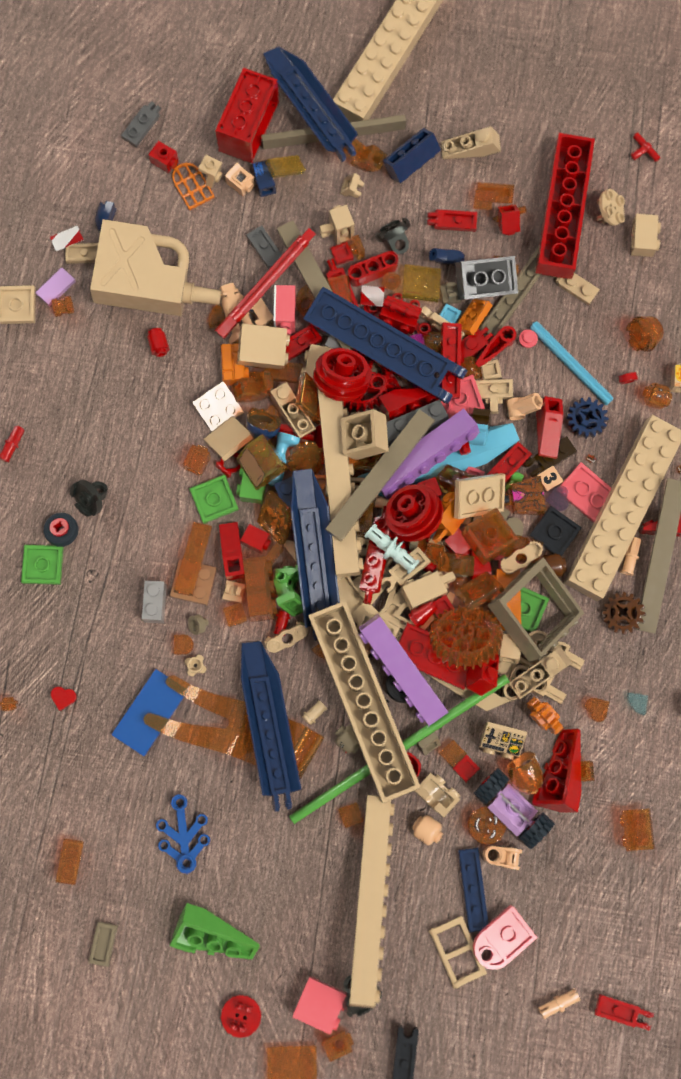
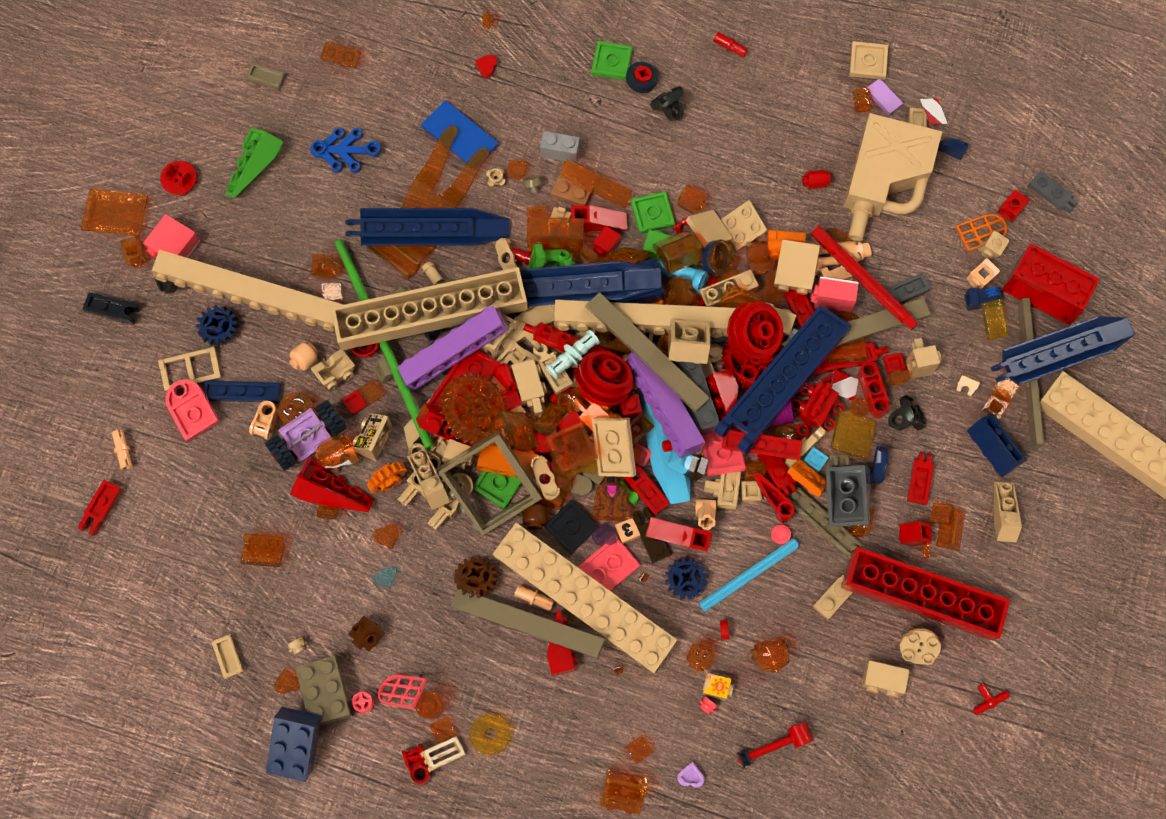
camera: 100 degrees right, 5 degrees down
(324, 828) = (325, 266): none -> clear orange rock
(415, 925) = (208, 323): none -> dark blue gear

